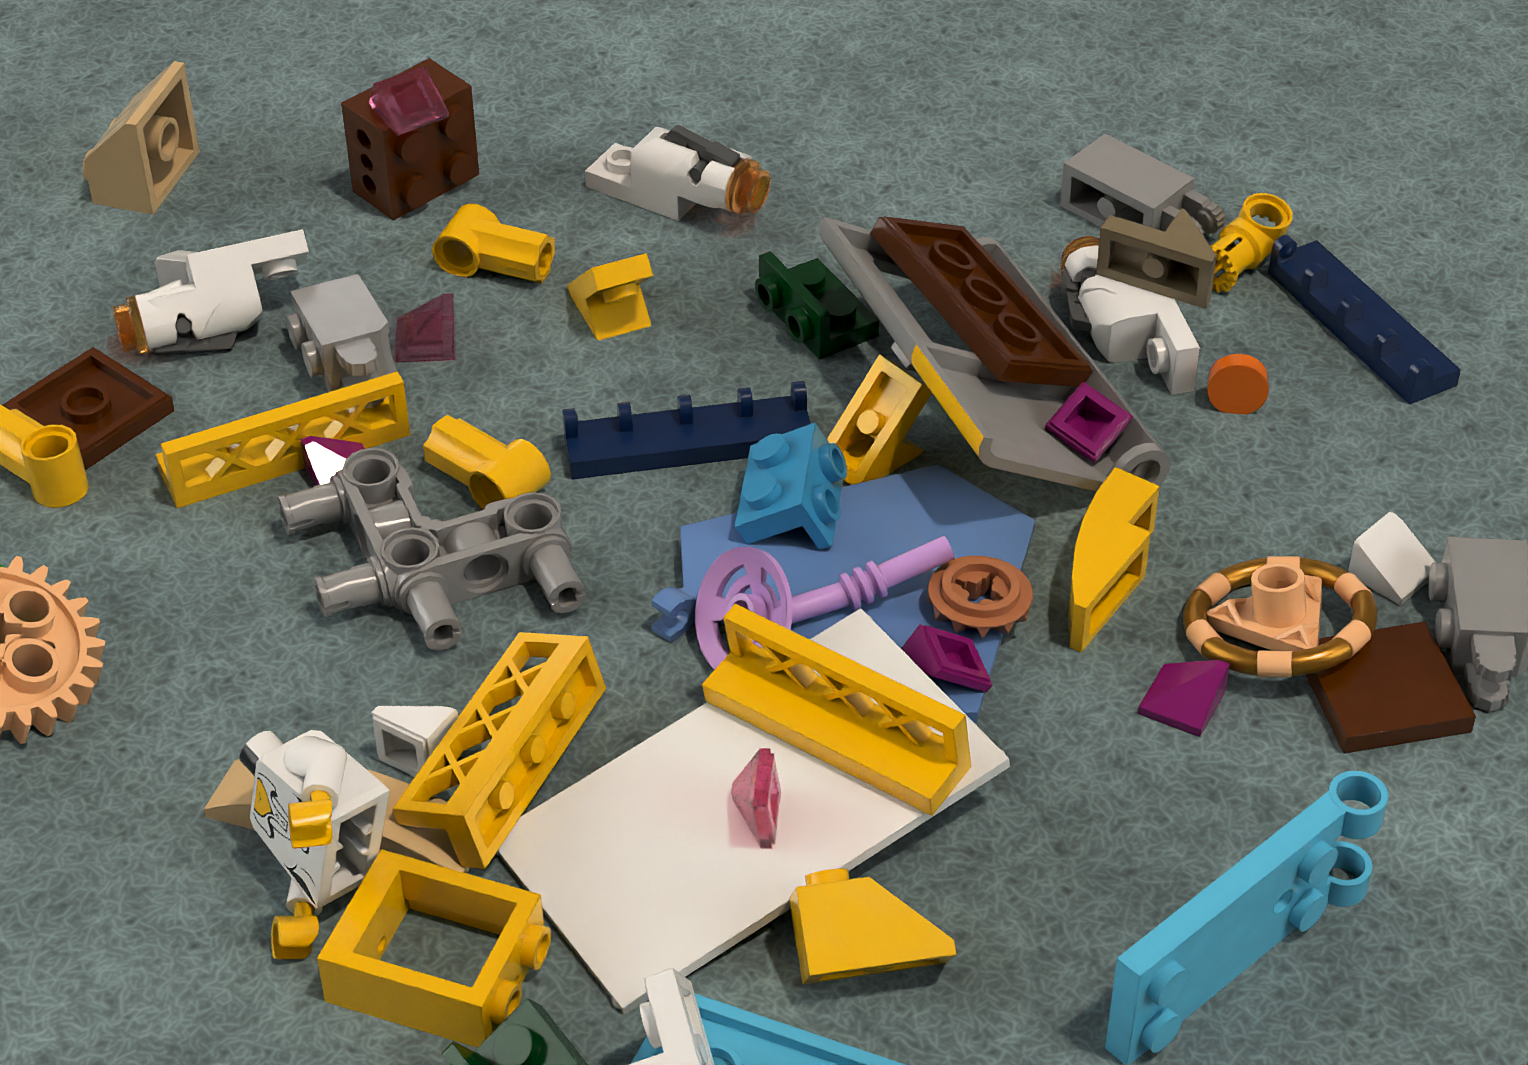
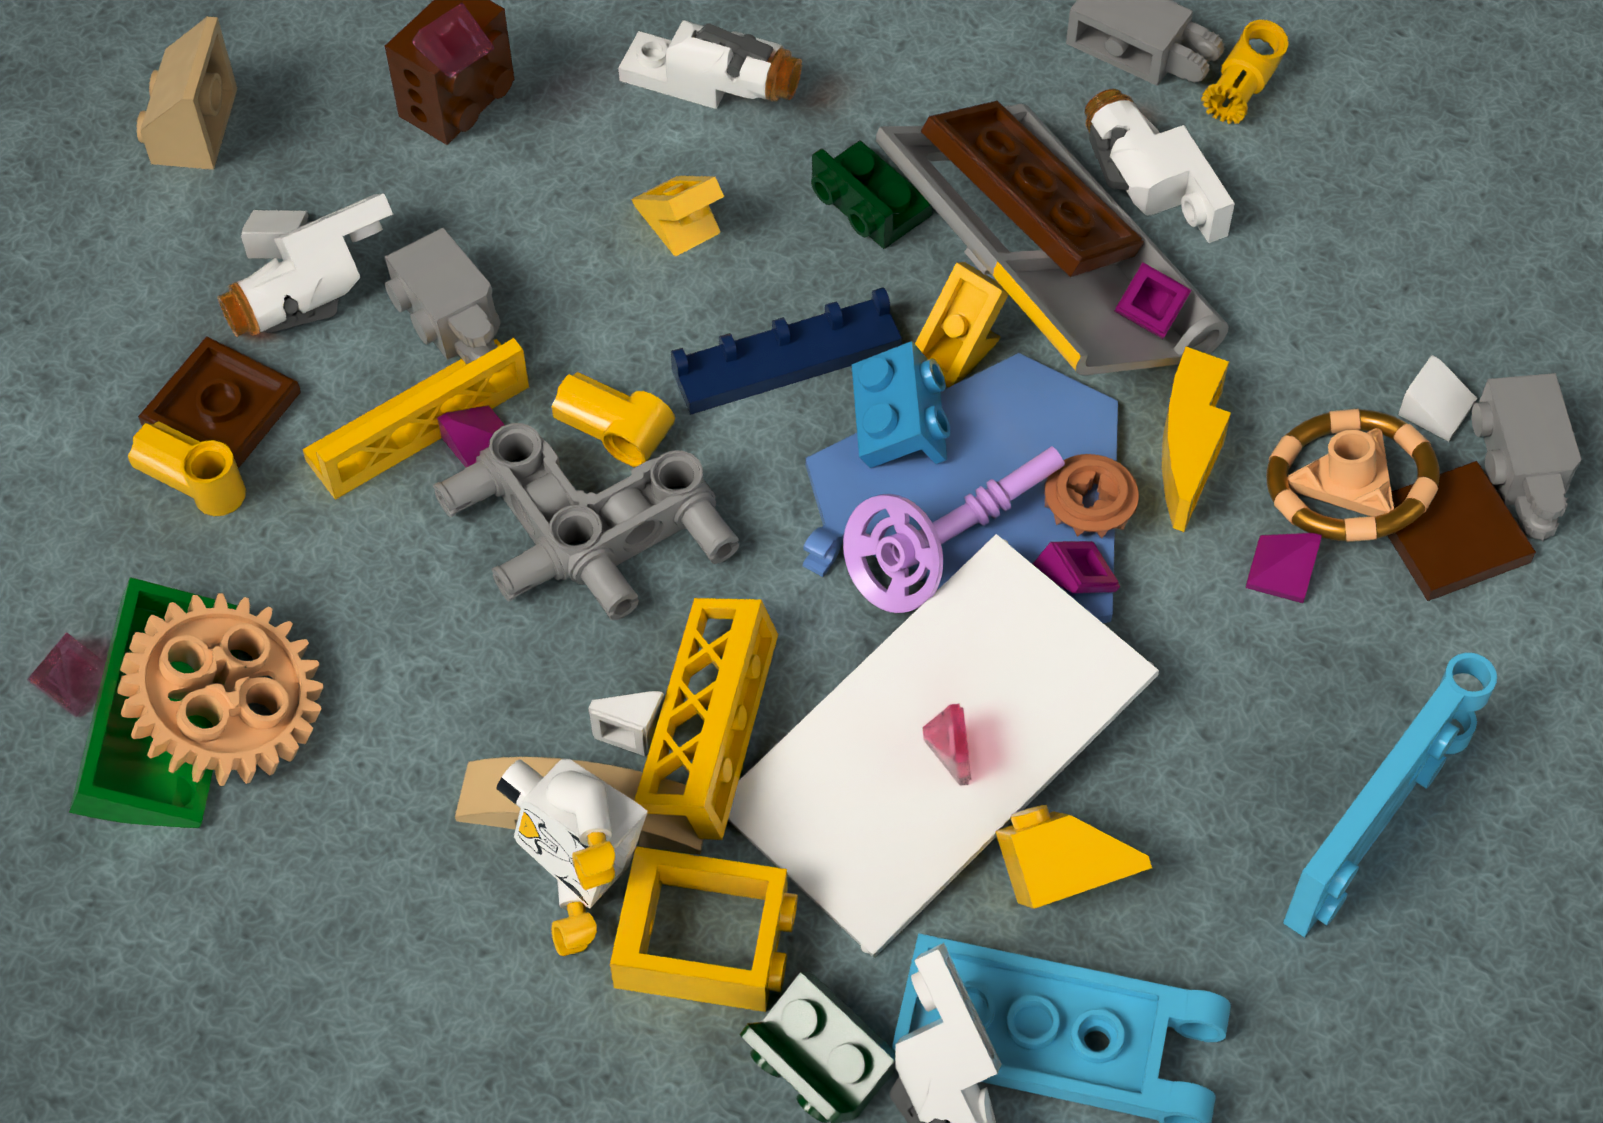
camera: 10 degrees left, 15 degrees up
(428, 332) = (516, 273): clear pink slope -> none
(479, 240) = (540, 167): yellow piece -> none
(834, 712) = (1003, 649): yellow fence -> none
(1163, 262) = (1193, 121): dark tan slope -> none
(1238, 384) = (1270, 230): orange tile -> none
(1362, 320) = (1364, 139): dark blue hinge -> none

